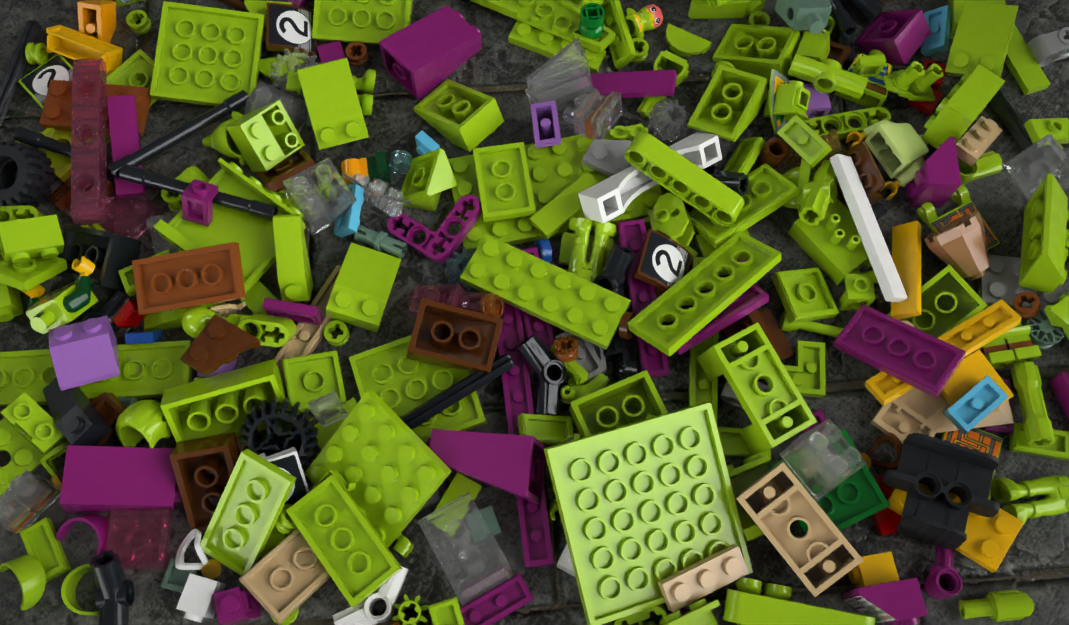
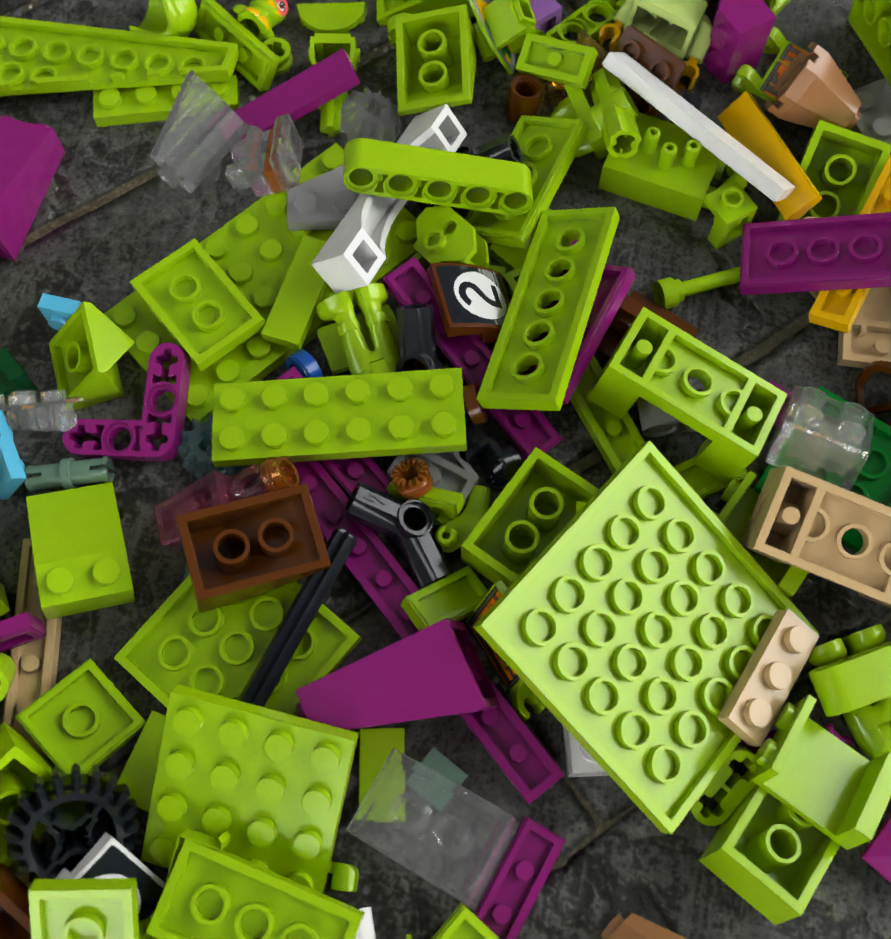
camera: 30 degrees left, 0 degrees up
(328, 409) = (125, 748): clear tile -> none
(341, 339) = (87, 639): lime bush -> none
(400, 161) = (35, 352): clear light blue bush -> none
(460, 114) = (85, 247): lime slope -> none
(545, 124) = (211, 200): medium lavender slope -> none
(591, 20) = (196, 39): green wheel -> none
(621, 133) = (317, 165): lime piece -> none
(745, 155) = (491, 115): lime tile -> none
(805, 295) = (667, 250): lime tile -> none
(809, 369) = (728, 334): lime plate -> none

